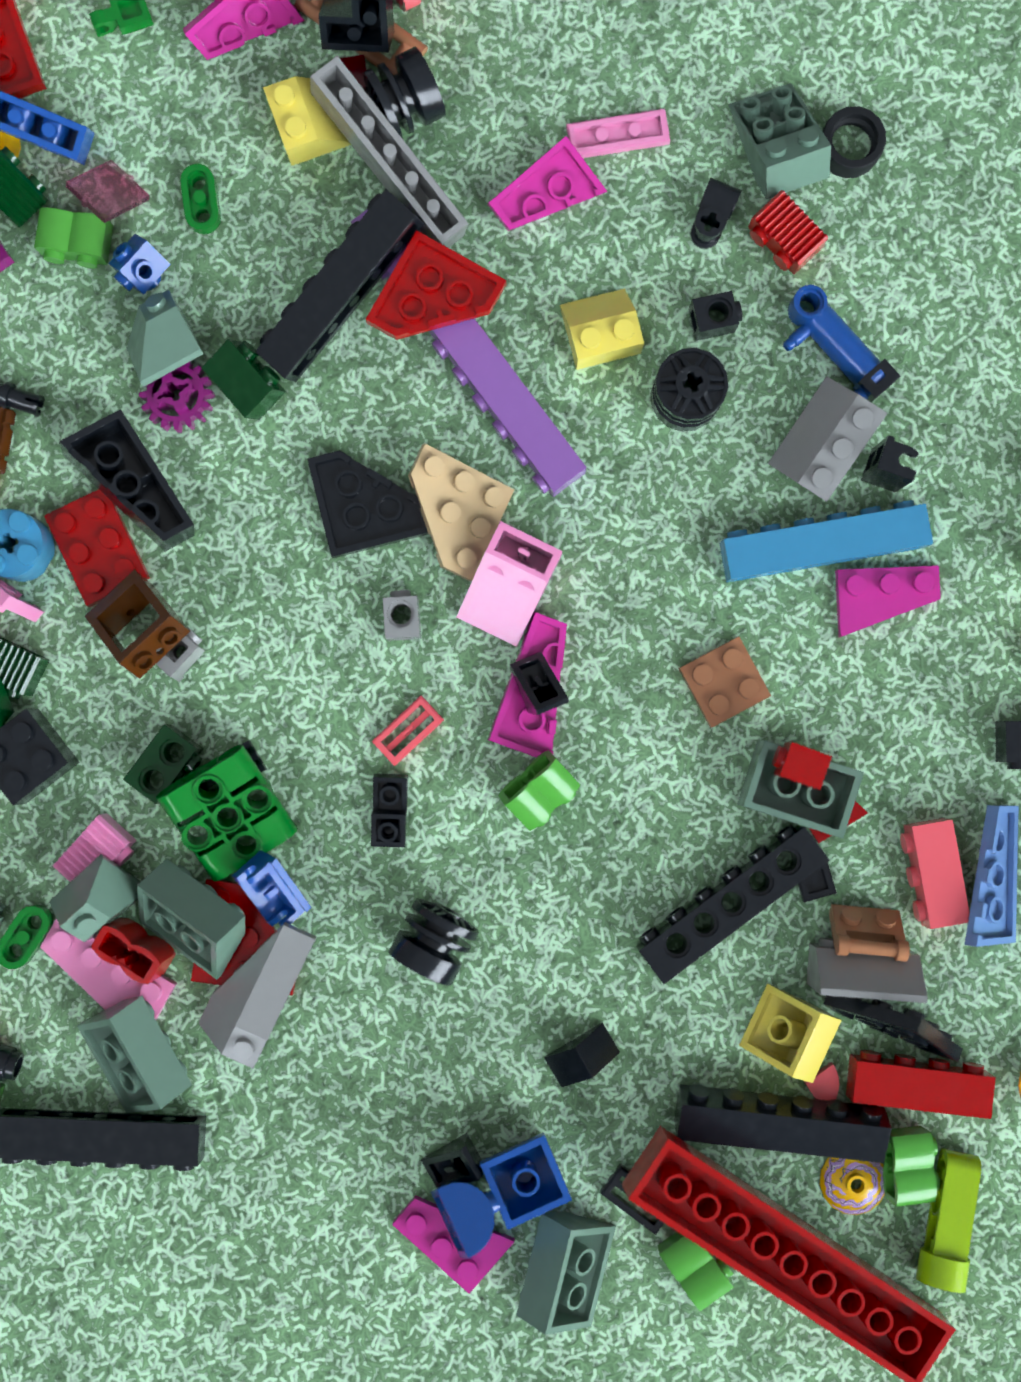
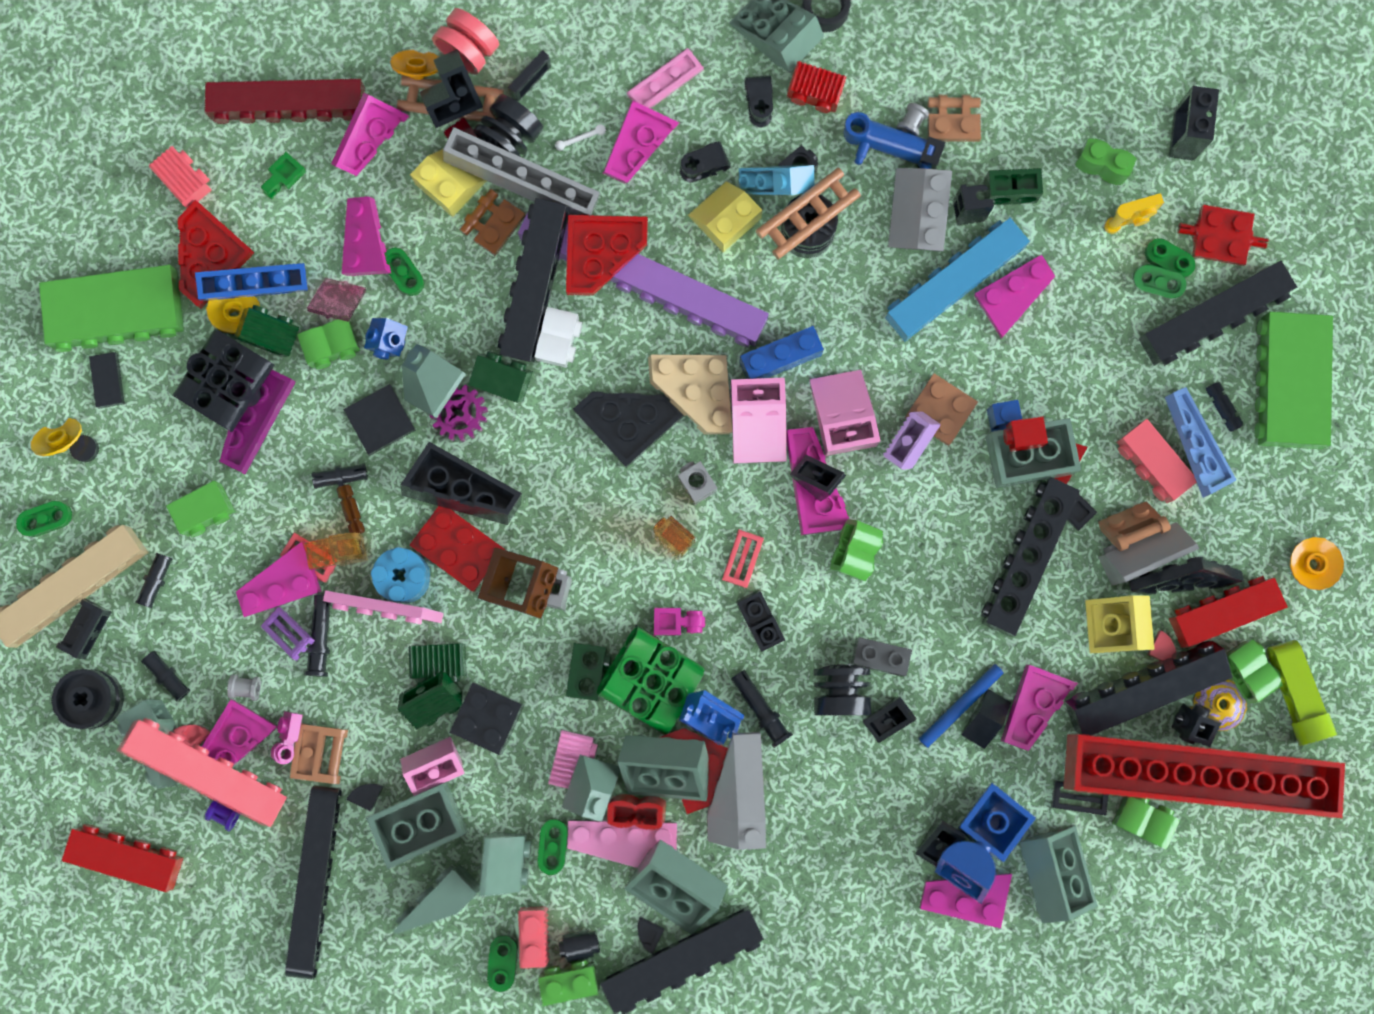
camera: 30 degrees left, 5 degrees down
(80, 1087) = (649, 933): none -> black tile
(86, 355) = (379, 420): none -> black tile
(172, 138) = (362, 240): none -> dark pink wing
(288, 757) = (669, 622): none -> dark pink plate
(334, 367) = (557, 337): none -> white brick
(336, 205) = (498, 228): none -> dark orange plate
(338, 665) = (673, 537): none -> clear orange brick
(338, 925) = (768, 719): none -> black pin
(464, 45) = (530, 76): none -> black tile
(472, 999) = (889, 719): none -> black slope
(500, 925) = (881, 657): none -> dark grey brick
(512, 152) = (600, 130): none -> white hinge
(561, 1026) = (961, 706): none -> blue piece
(576, 523) = (782, 354): none -> blue brick
(611, 626) = (844, 413): none -> bright pink slope
(614, 253) = (707, 162): none -> black piece
(643, 1069) = (1034, 704): none -> dark pink wing
(669, 700) = (911, 440): none -> lavender brick
(681, 317) = (777, 180): none -> medium azure slope
(711, 385) = (791, 212): none -> nougat bar
(791, 727) = (1003, 413): none -> blue brick
(812, 1192) = (1196, 724): none -> black brick
(878, 329) = (913, 119): none -> light grey bush
(921, 363) = (954, 127): none -> nougat plate
(950, 469) = (1014, 186): none -> dark green brick

